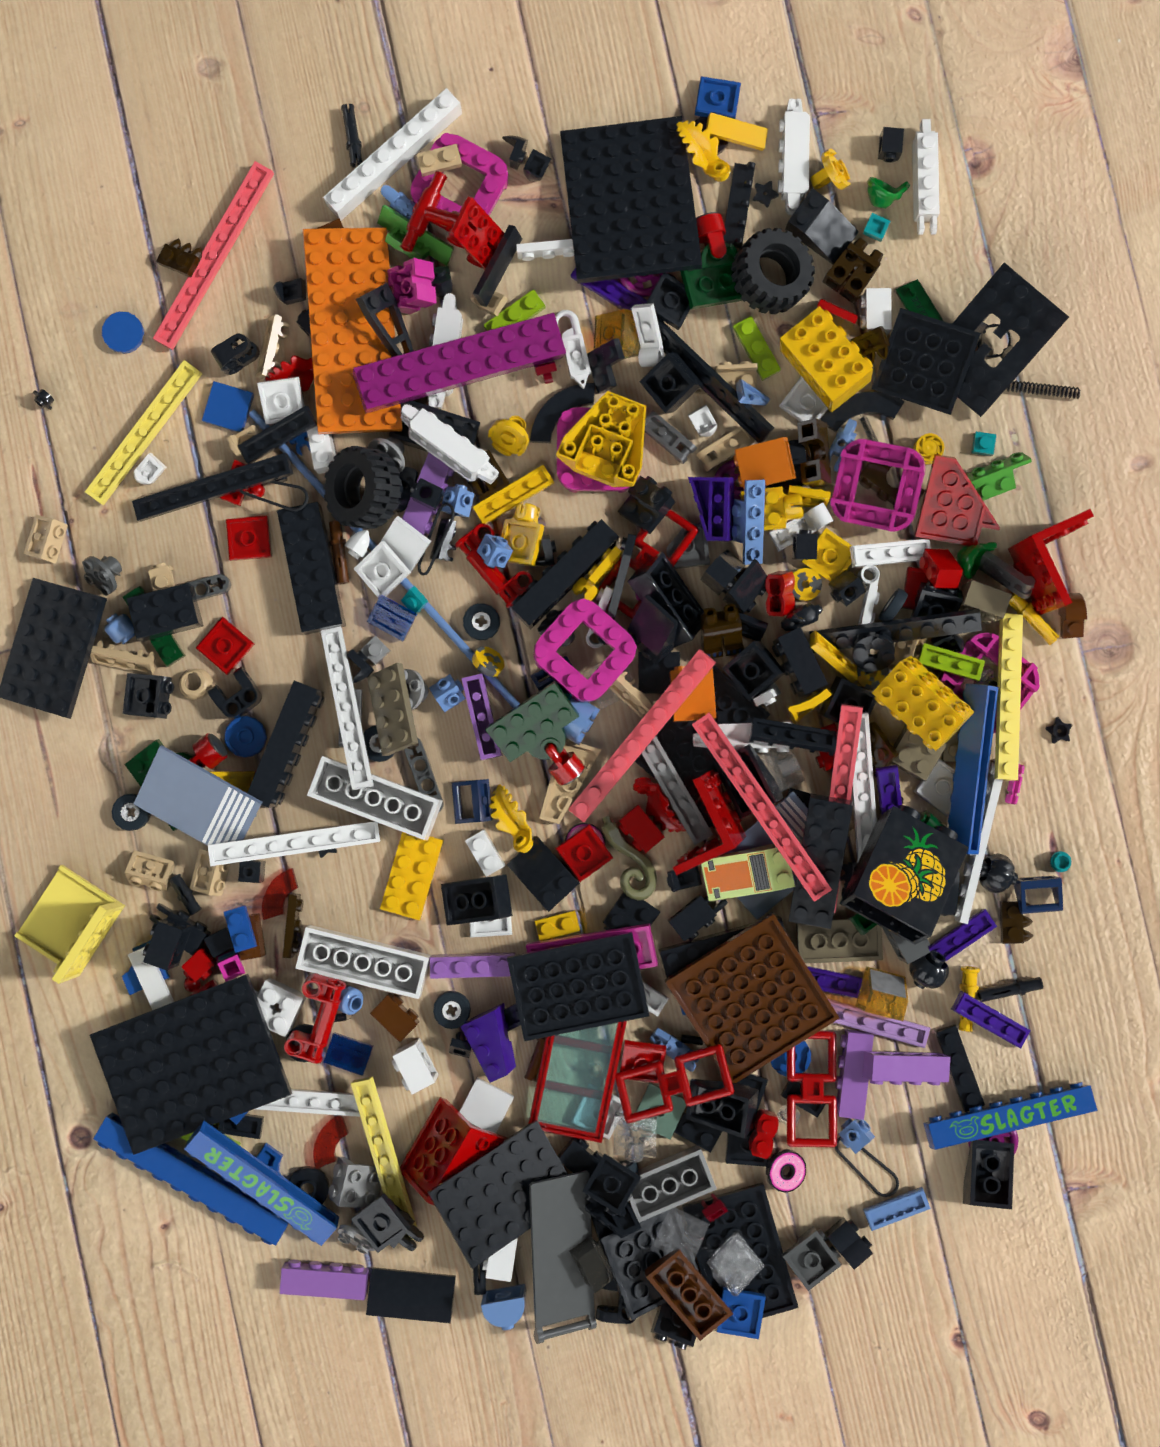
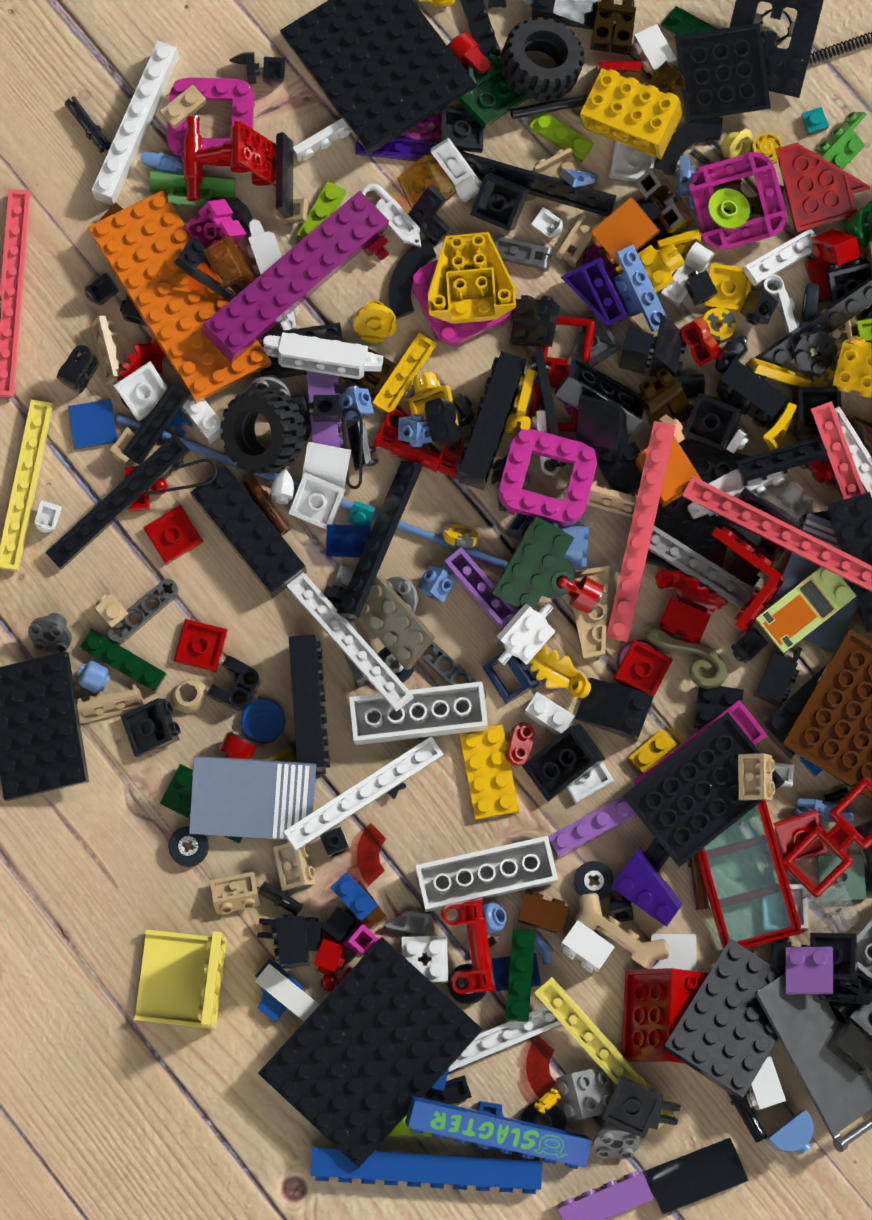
camera: 25 degrees left, 10 degrees down
(165, 612) = (131, 637): black brick -> none
(282, 968) = (410, 923): none -> light grey tile
(293, 925) = (400, 875): dark brown plate -> none
(319, 1174) = (547, 1101): none -> yellow piece
(349, 1060) = (520, 975): none -> dark green plate
(381, 1043) = (543, 948): none -> medium blue bar
(408, 323) = (229, 262): none -> clear orange plate
(417, 631) = (379, 539): none -> black plate
(448, 863) = (518, 741): none -> red plate
(460, 1093) = (646, 952): none -> tan plate
(474, 613) = (429, 514): black bush -> none
(498, 776) = (525, 634): none -> white plate
(520, 555) = (442, 420): none -> black brick
(585, 1187) = (809, 970): none -> medium lavender plate
(626, 1001) = (756, 776): none -> tan bracket
(717, 657) = (678, 433): none -> light nougat plate
(758, 316) = (547, 107): none -> black piece
(874, 485) = (733, 202): none -> lime dish
(904, 433) = (737, 144): none -> light yellow hat

